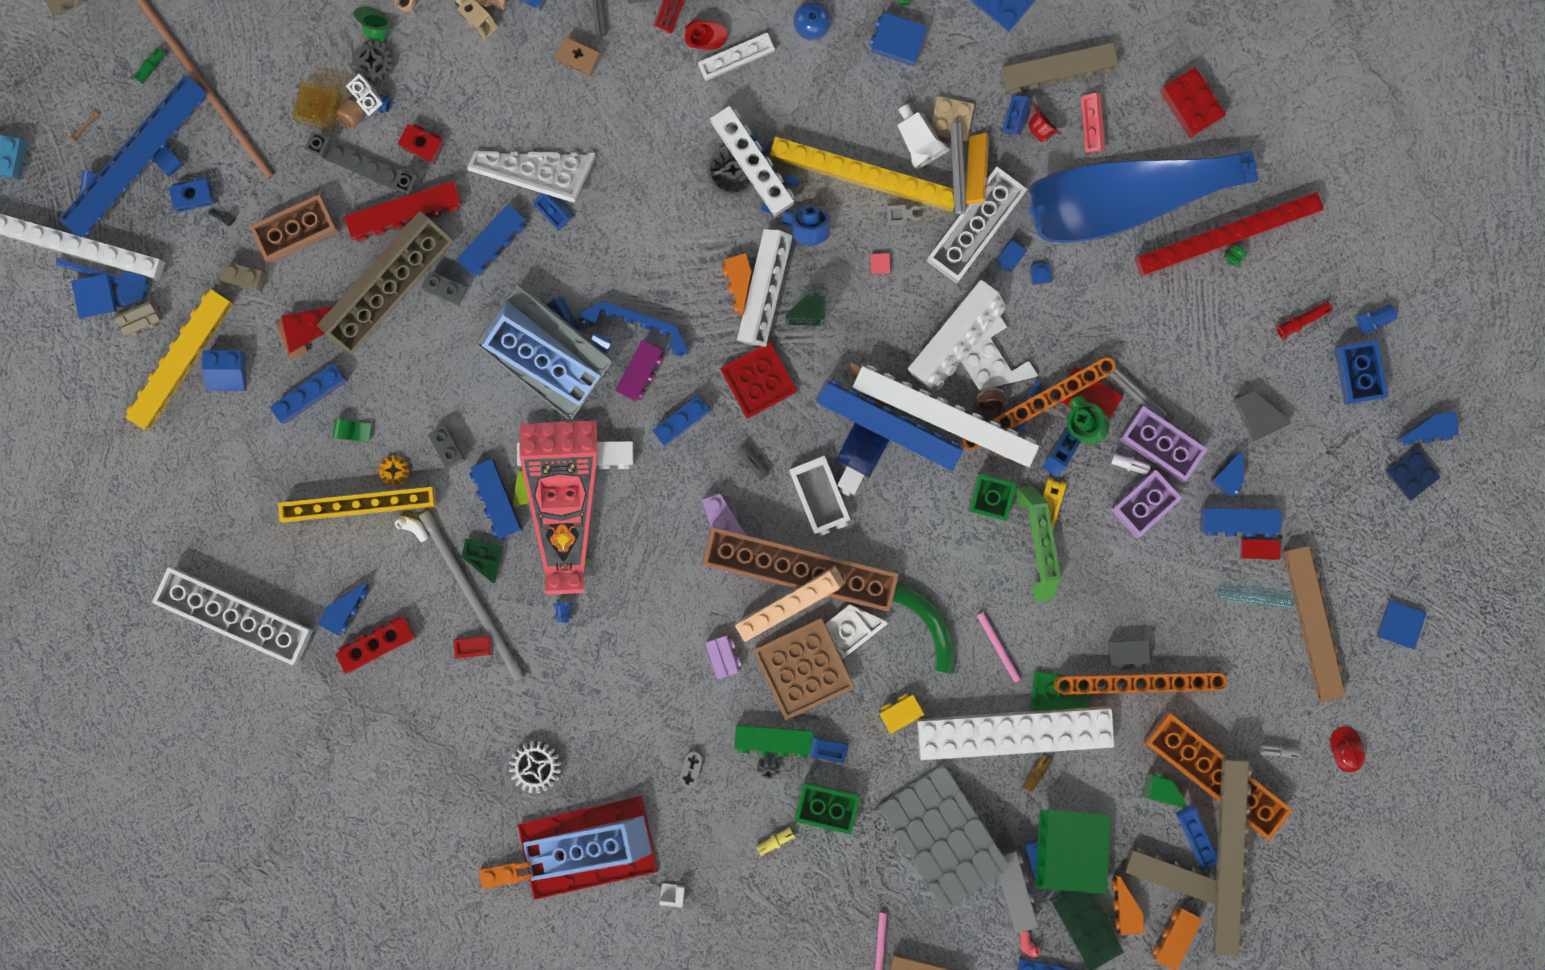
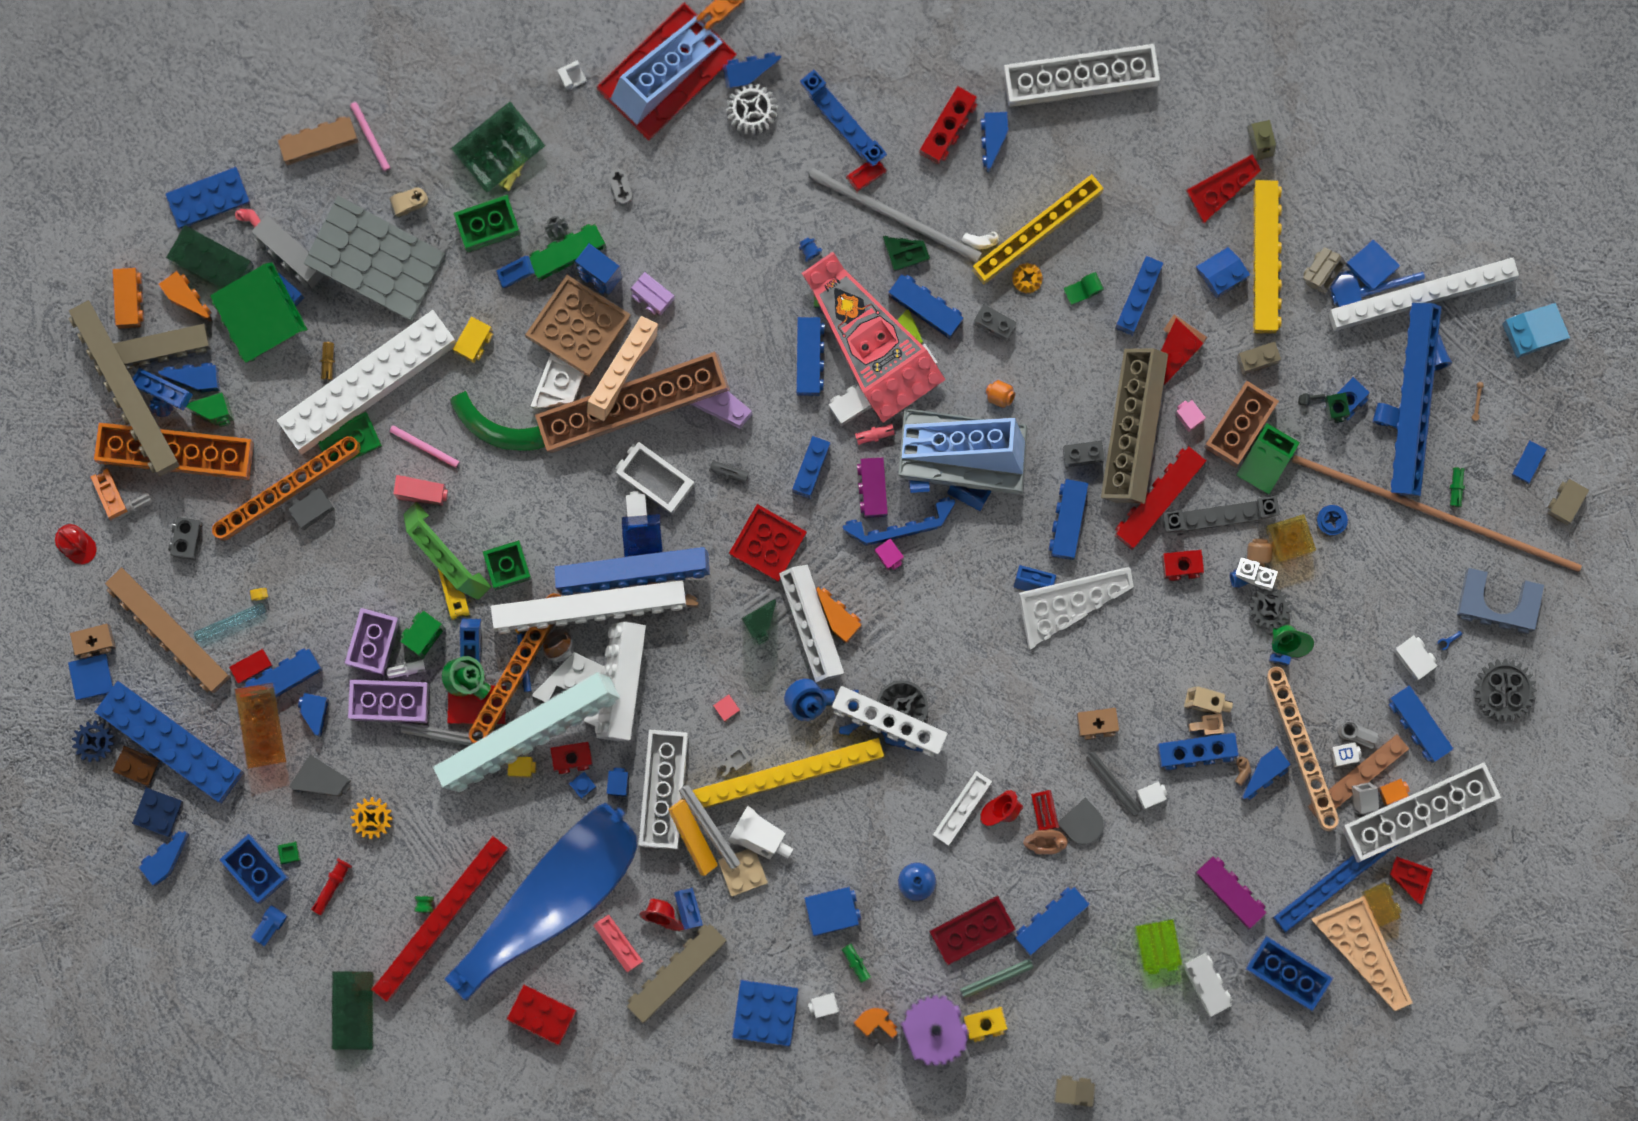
camera: 150 degrees right, 5 degrees down
(75, 49) = (1529, 461): none -> blue tile
(114, 463) = (1262, 138): none -> olive torso
(182, 444) = (1217, 189): none -> red wing
(205, 197) = (1340, 399): none -> dark green brick
(267, 96) = (1336, 512): none -> blue gear
(291, 185) = (1267, 458): none -> green slope
(332, 265) = (1190, 415): none -> bright pink brick
(391, 14) = (1283, 660): none -> blue tile
(463, 707) = (841, 119): none -> blue slope
(481, 383) = (1000, 394): none -> orange head
(519, 802) = (744, 72): none -> blue slope
(609, 416) = (875, 434): none -> coral pin
(623, 518) = (808, 356): none -> blue brick
(662, 305) = (889, 555): none -> dark pink brick
(756, 704) = (598, 269): none -> blue brick
(776, 870) = (497, 147): none -> clear green slope
(886, 871) = (406, 201): none -> tan piece
(1027, 608) = (419, 490): none -> coral slope
(1045, 310) = (560, 753): none -> red brick
(1065, 338) = (527, 732): none -> light aqua brick
(1084, 320) = (522, 767): none -> yellow brick
(1100, 482) = (422, 634): none -> green brick
(1158, 827) = (197, 378): none -> blue slope
(1207, 821) = (160, 407): none -> blue gear
(1217, 606) = (258, 594): none -> yellow axle
(1236, 362) = (365, 824): none -> light orange gear
(1247, 689) = (191, 538): none -> dark grey brick
(1286, 489) = (260, 725): none -> clear orange brick
(1295, 773) = (109, 494): none -> orange plate
(1322, 371) = (288, 853): none -> green tile
(1348, 205) = (352, 1010): none -> clear green slope
(1369, 526) = (169, 742): none -> blue brick
(1371, 654) = (82, 638): none -> medium nougat brick
(1407, 524) = (136, 766): none -> reddish brown plate
(1433, 575) = (87, 746): none -> dark blue gear

